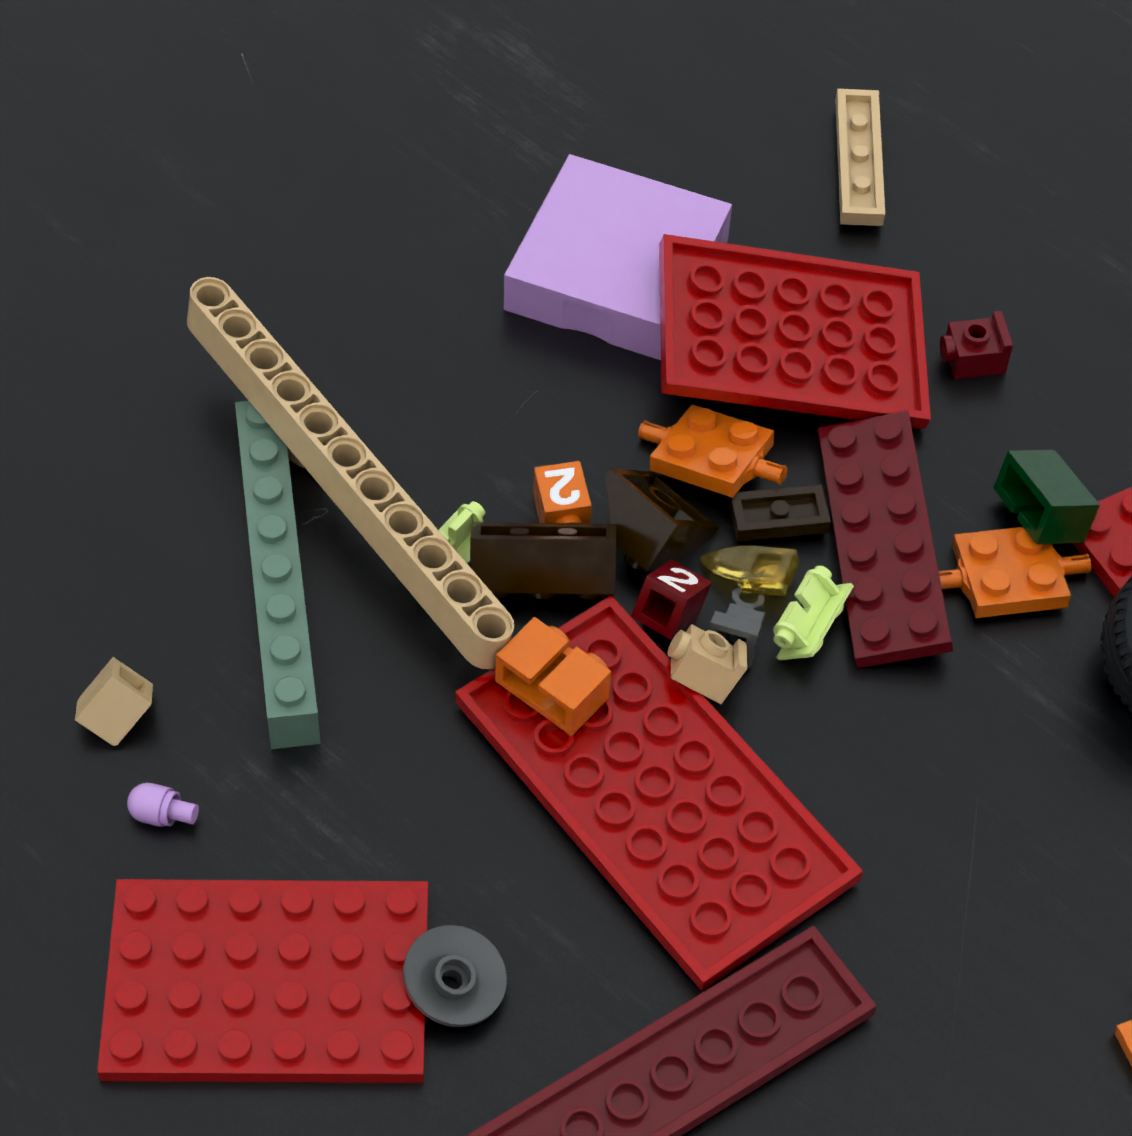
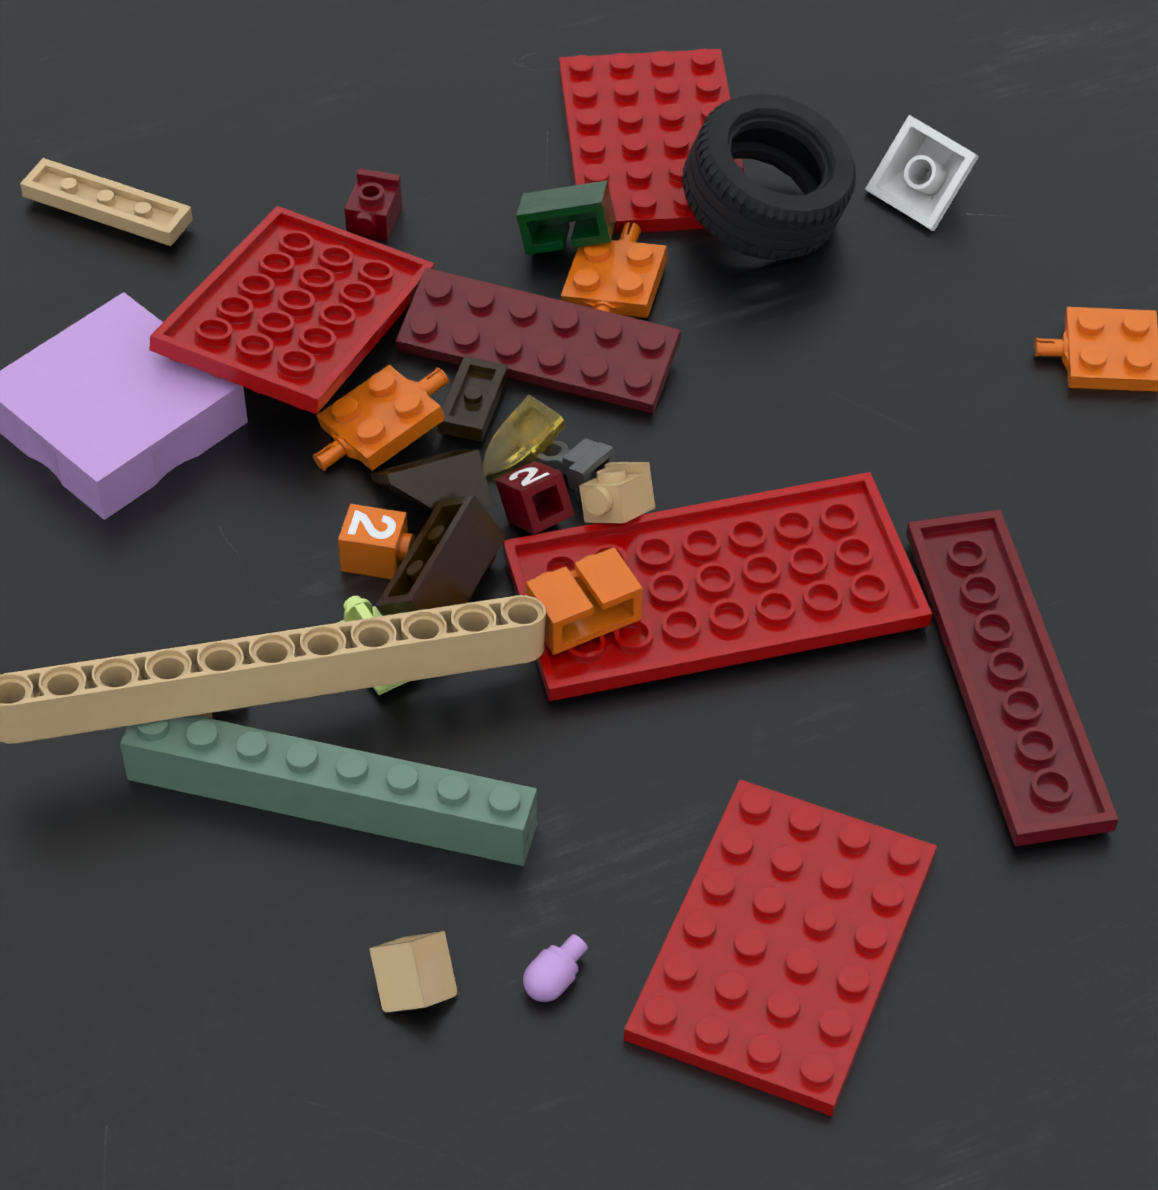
camera: 65 degrees left, 5 degrees down
(467, 959) = (852, 786): dark grey dish -> none
(803, 629) = (597, 413): yellowish green hinge -> none

